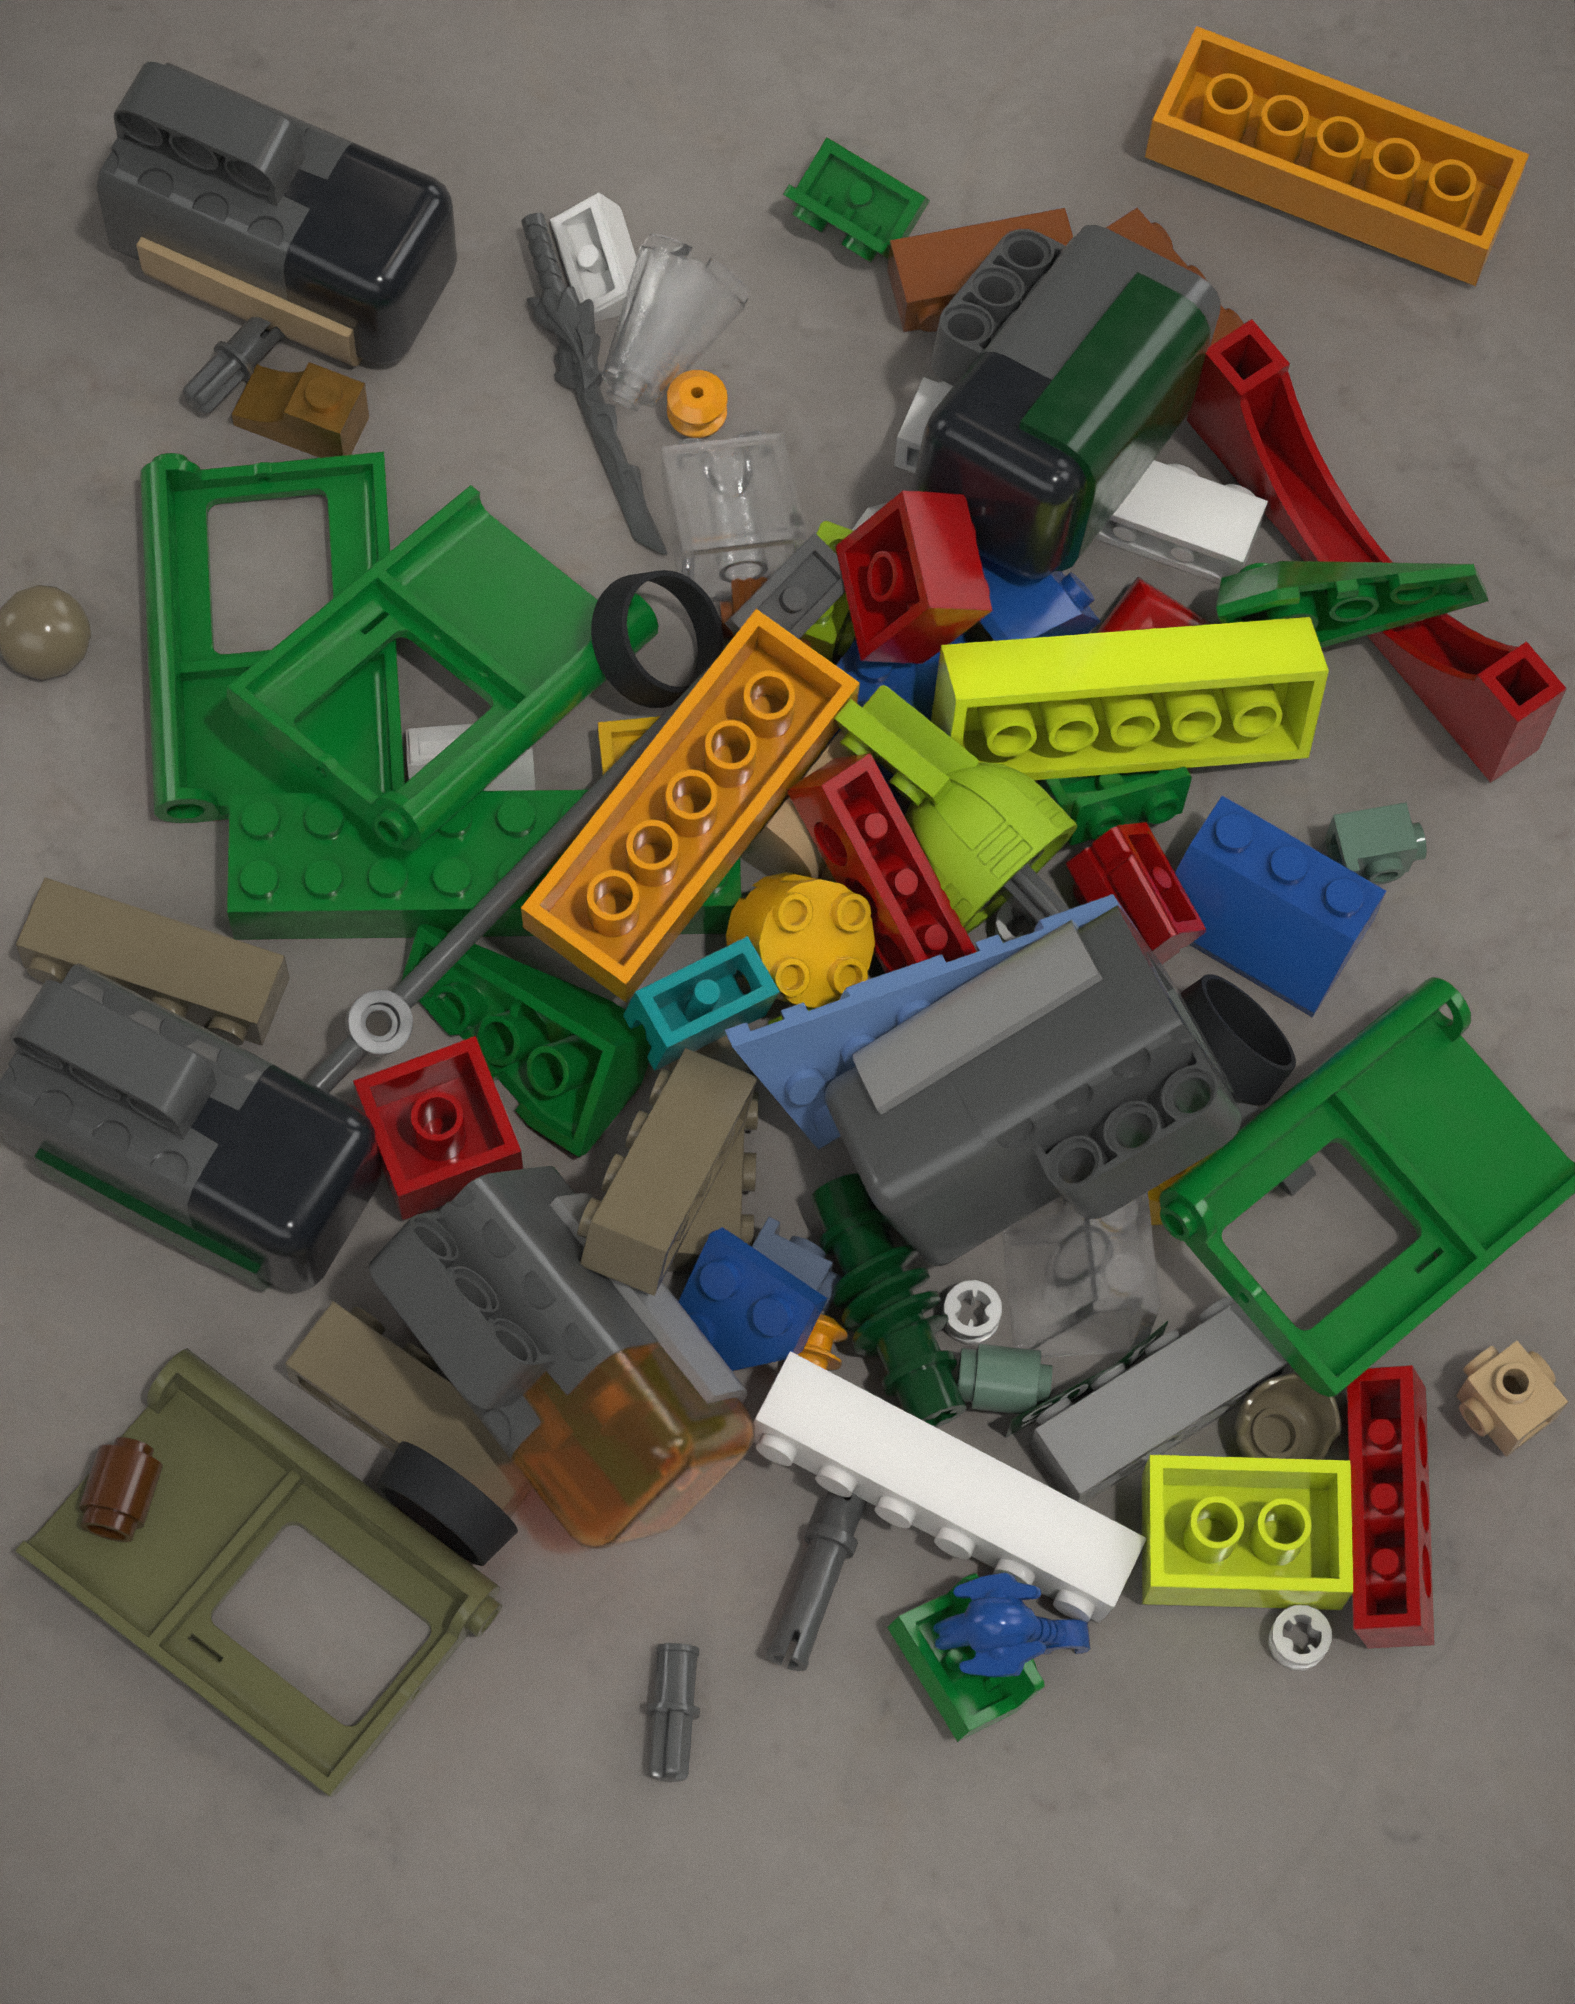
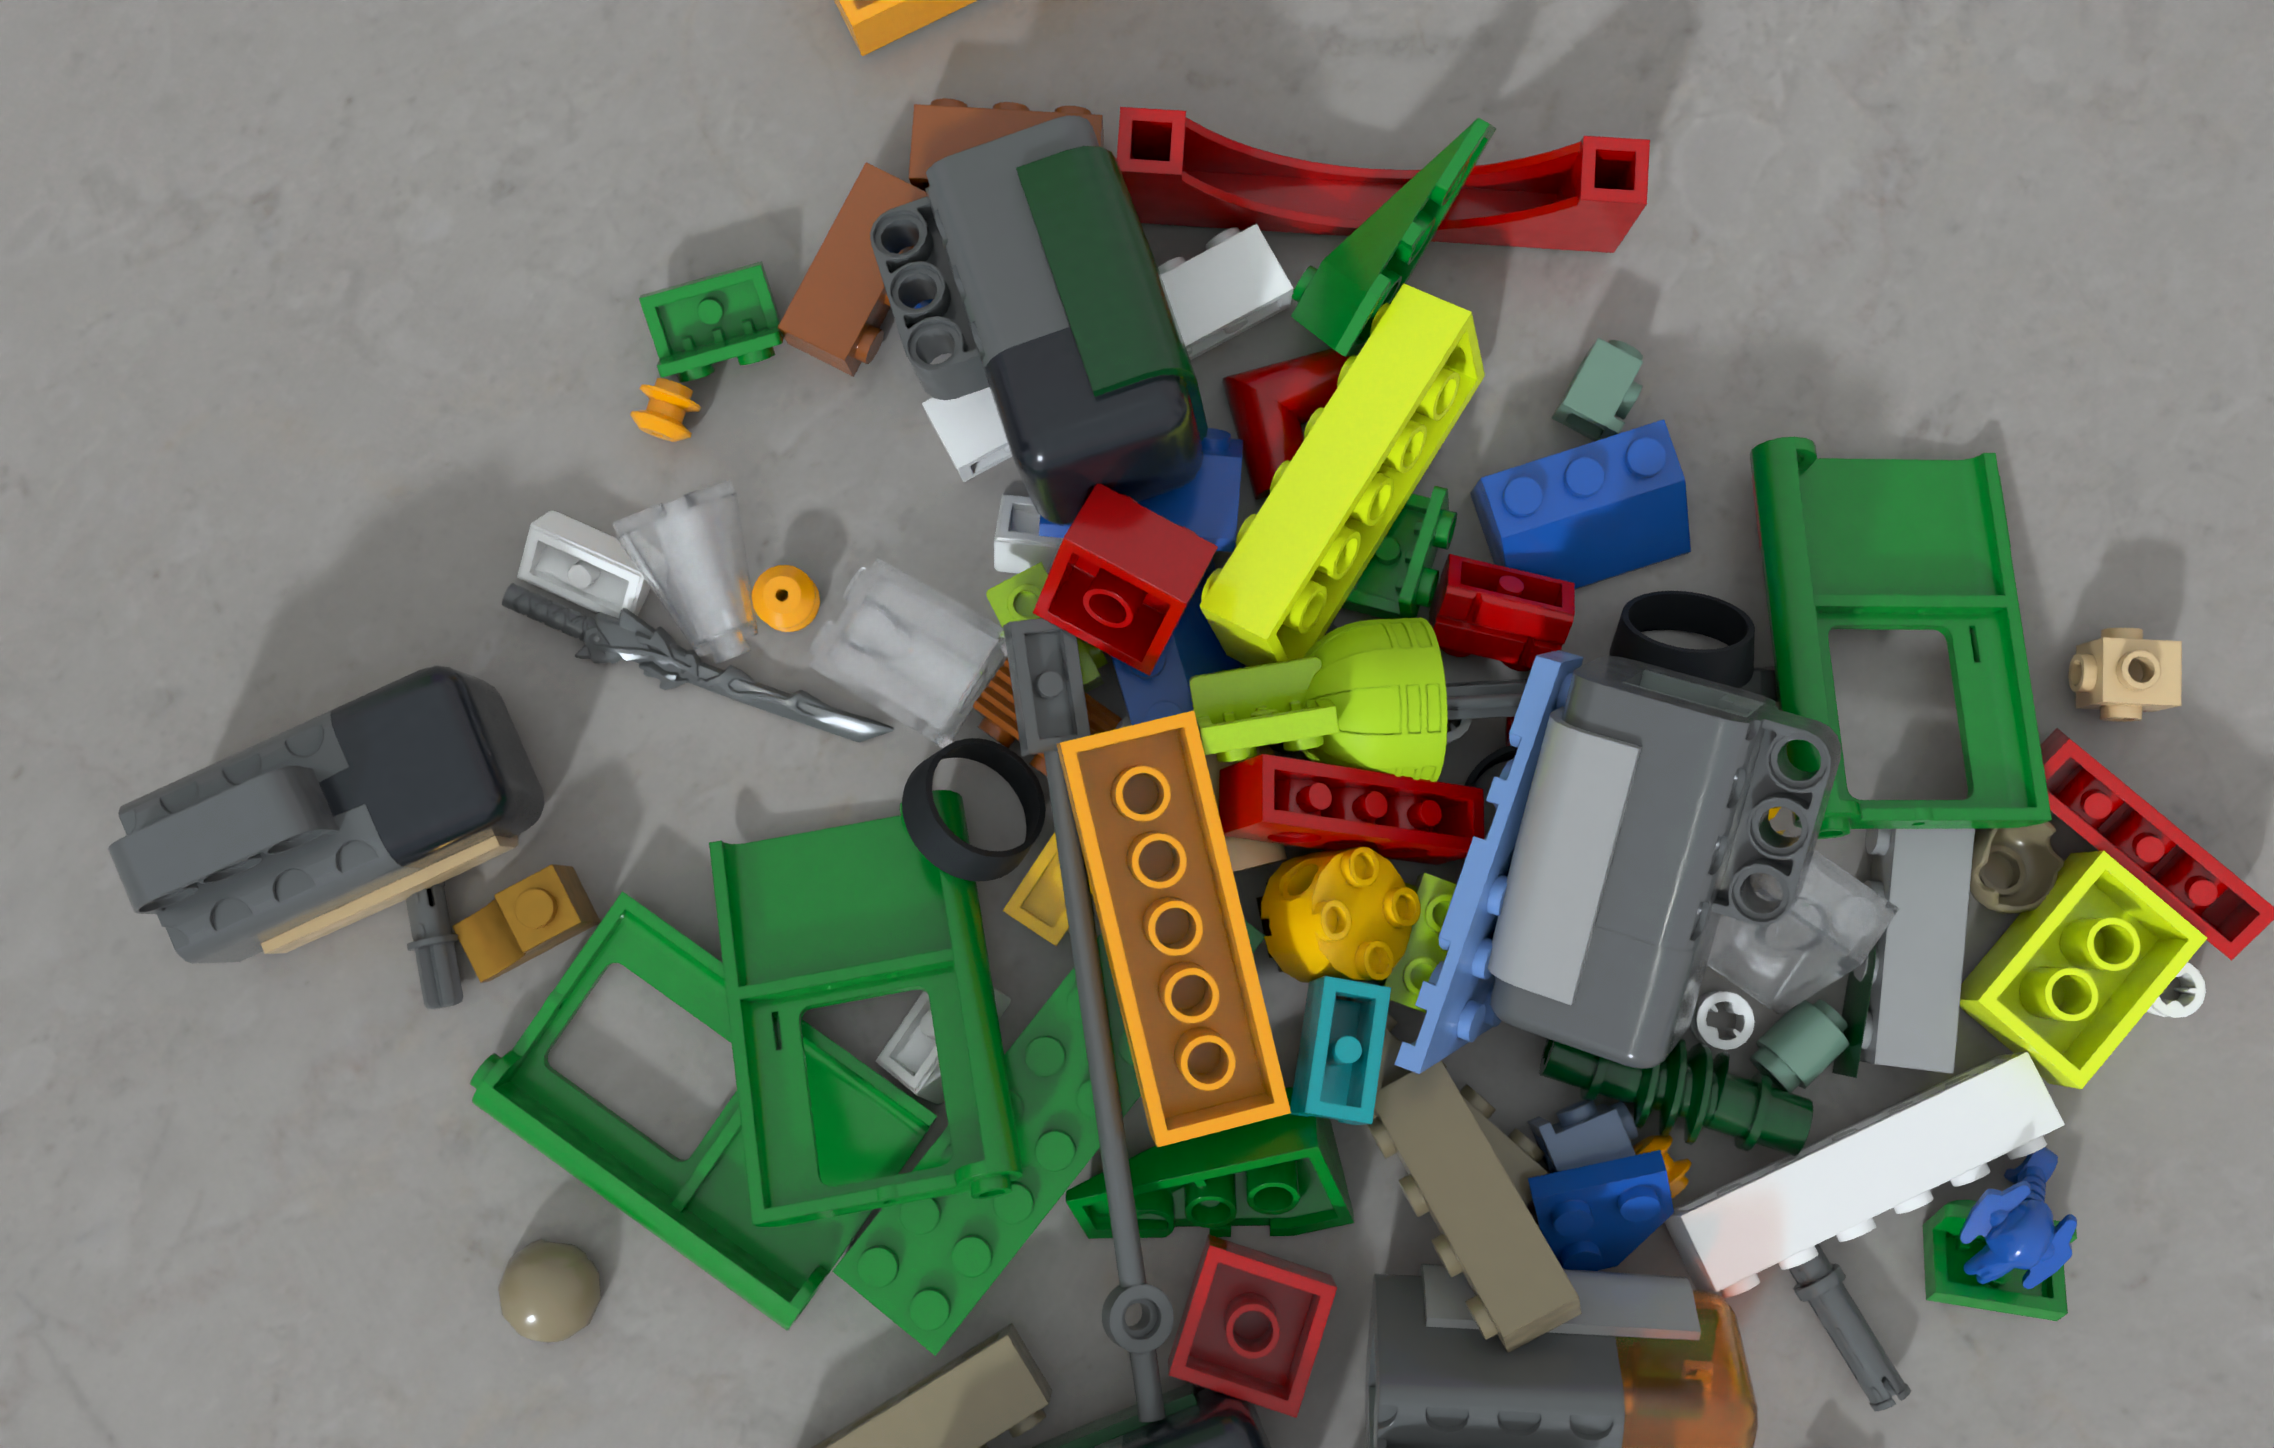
camera: 40 degrees left, 15 degrees up
(762, 220) = (666, 410): none -> light orange wheel

